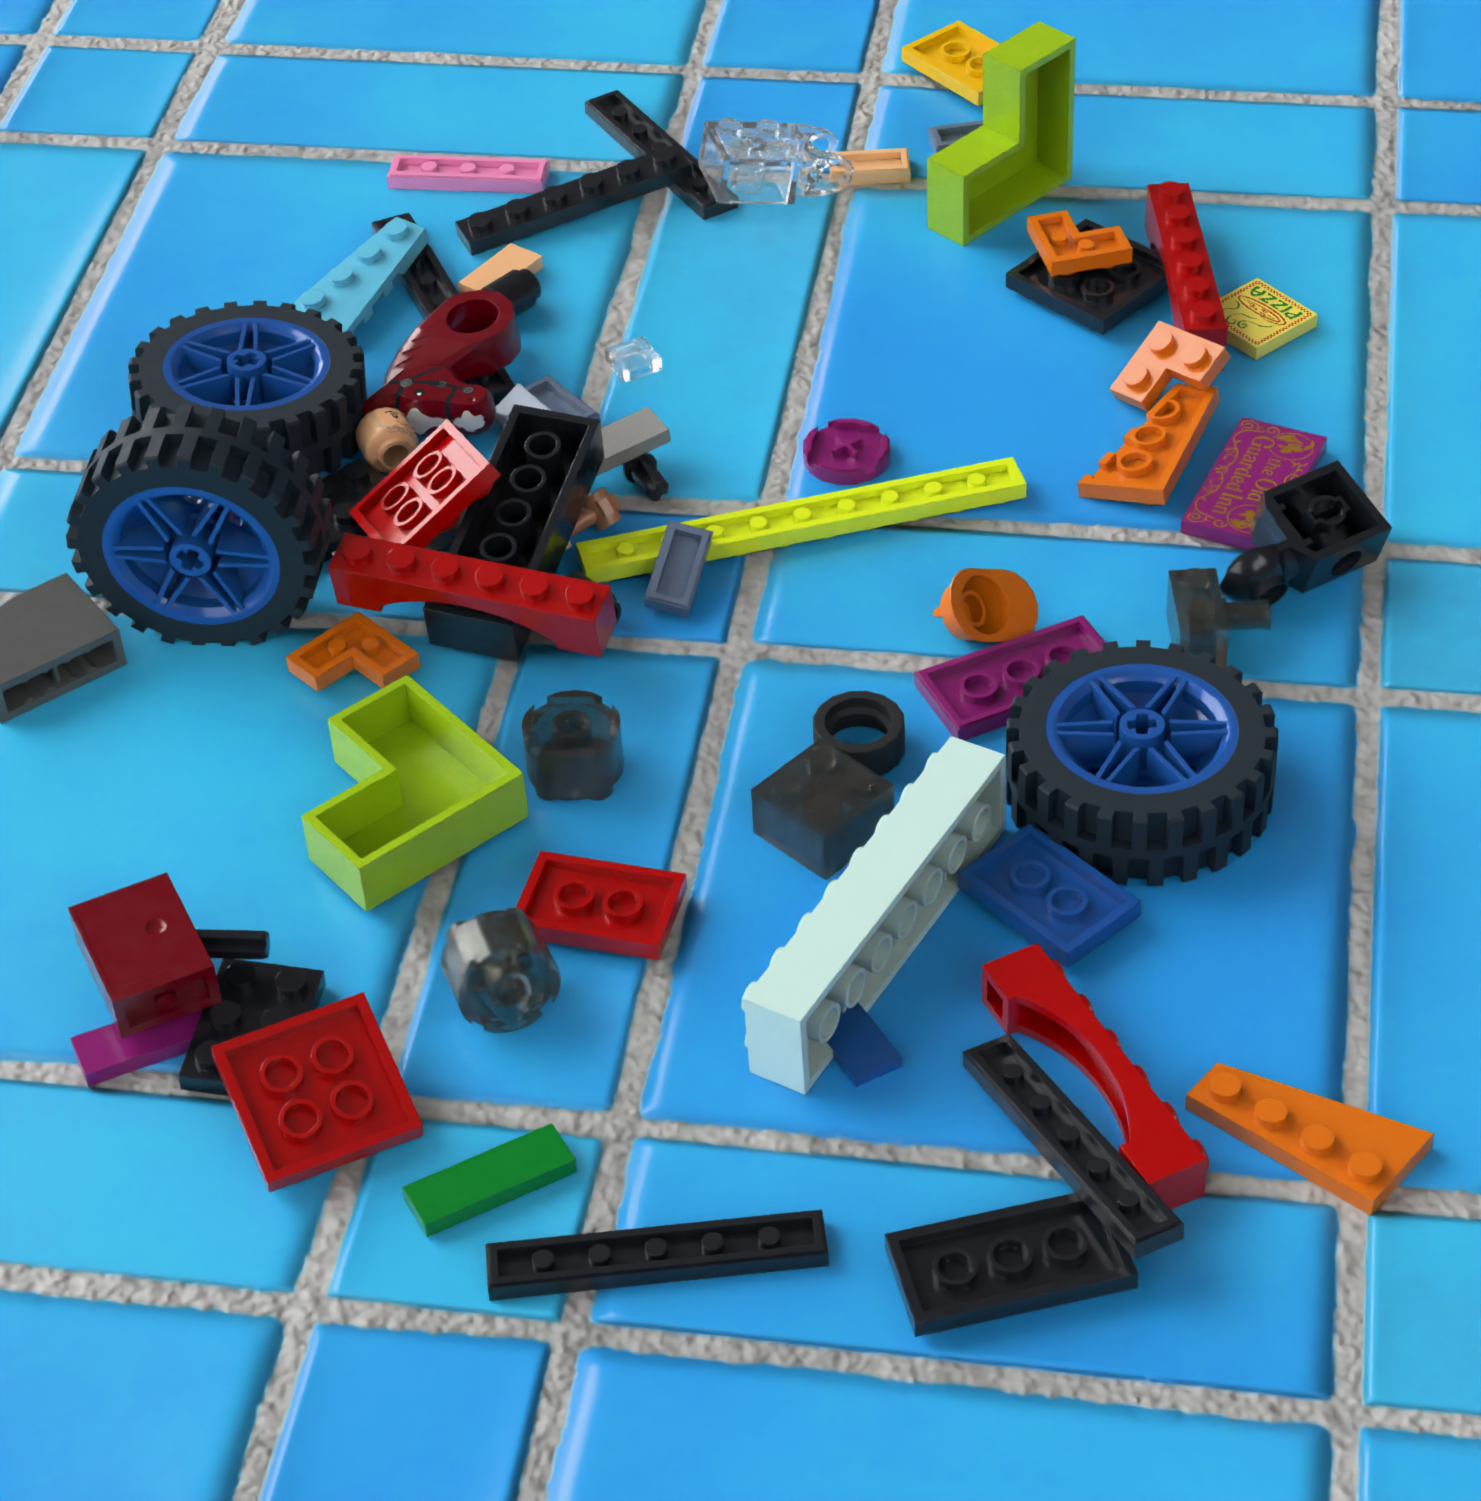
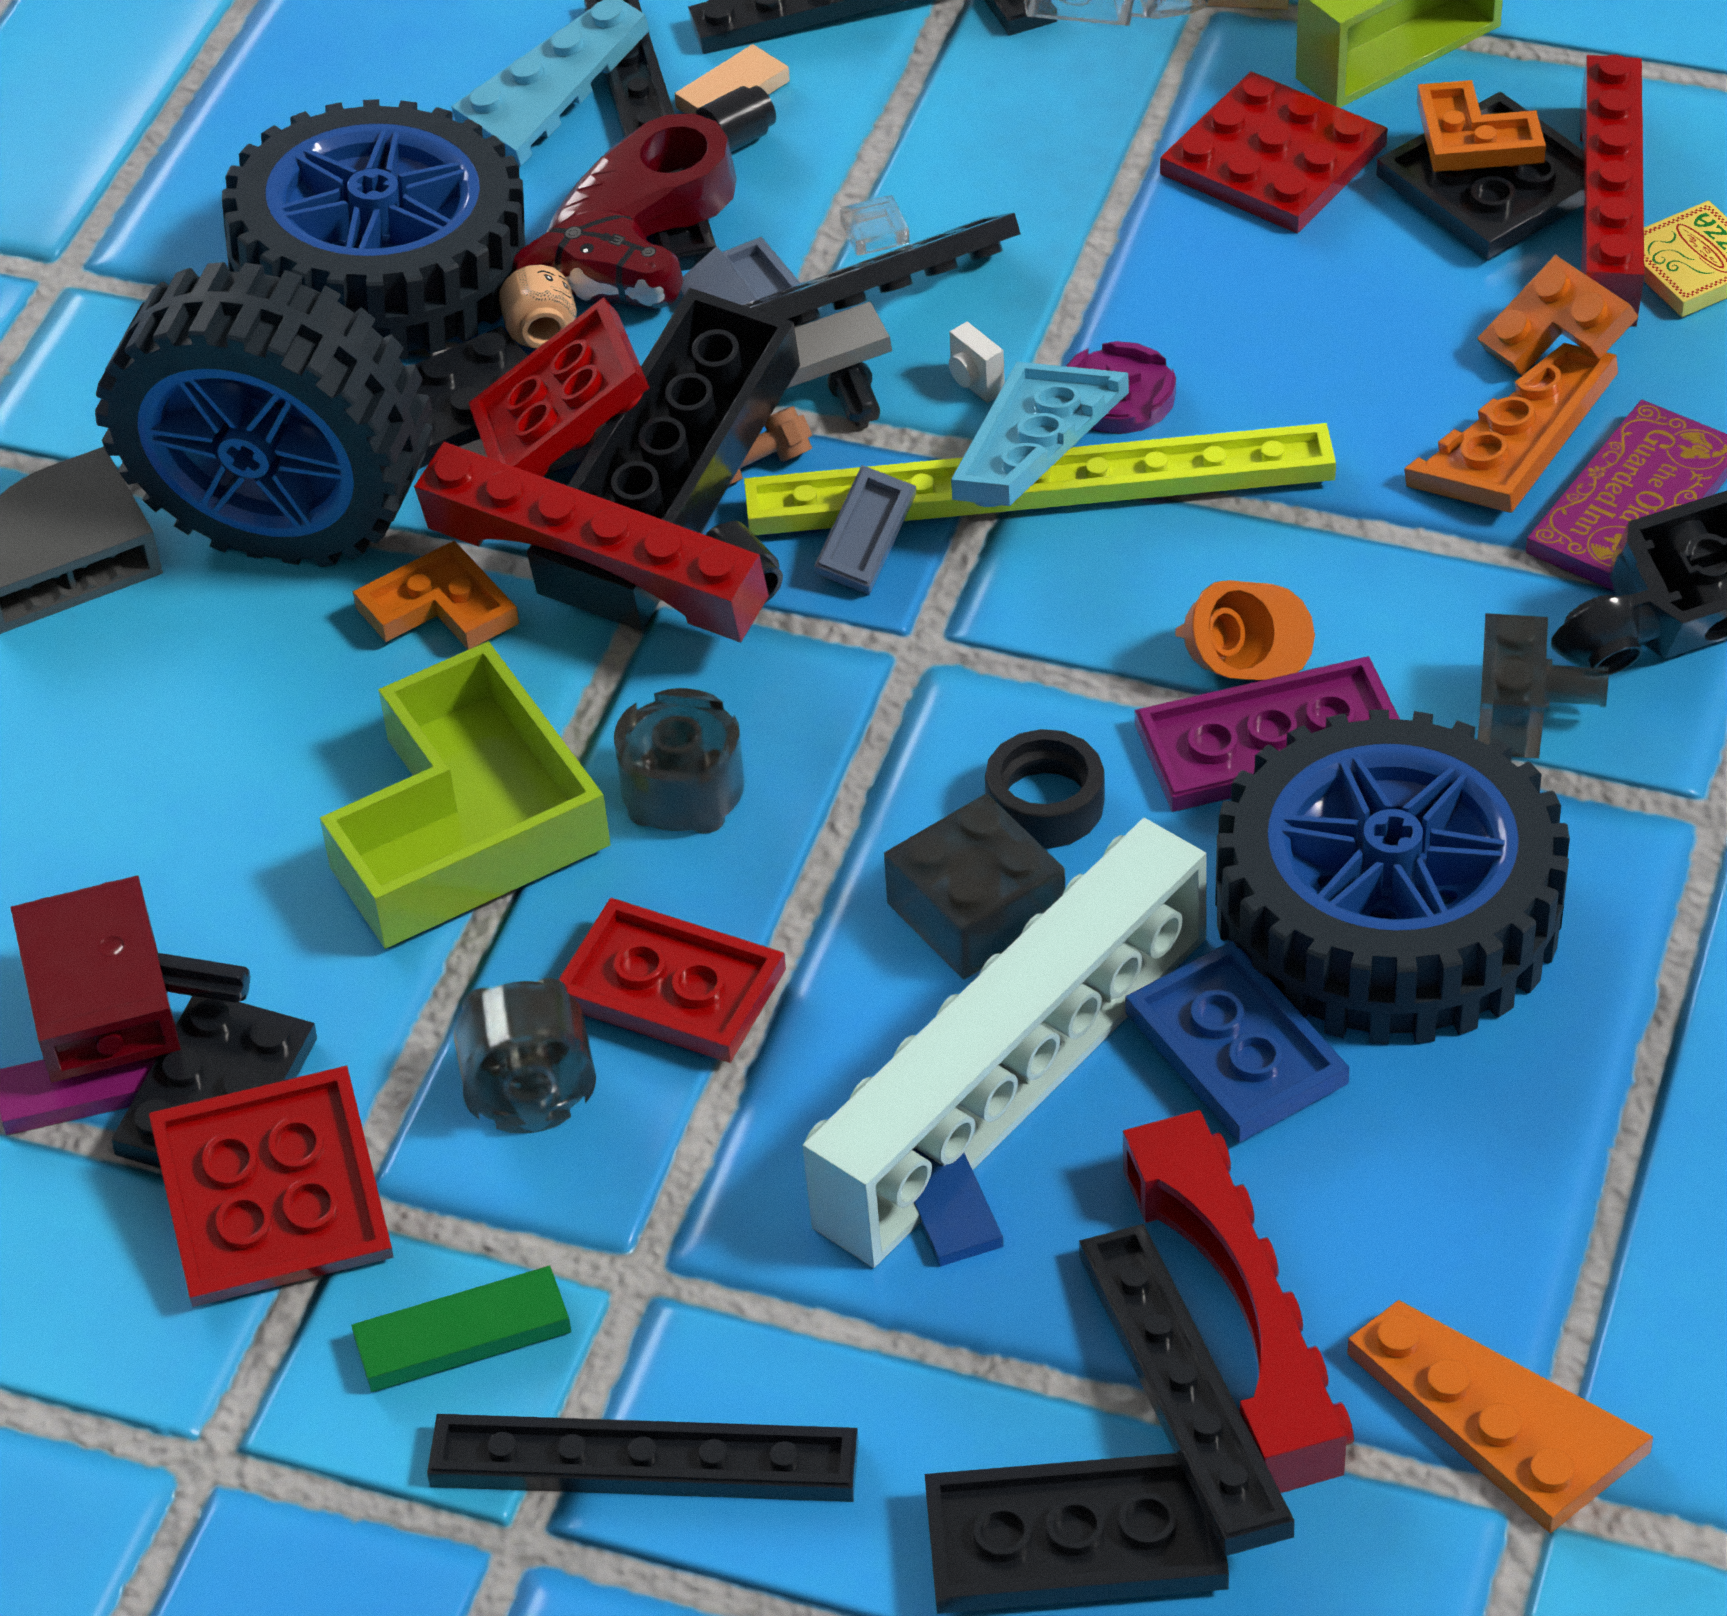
camera: 10 degrees right, 5 degrees up
(658, 384) = (889, 270): none -> black plate
(736, 443) = (976, 362): none -> white plate
(792, 481) = (1031, 427): none -> medium azure wing
(924, 278) = (1273, 151): none -> red plate

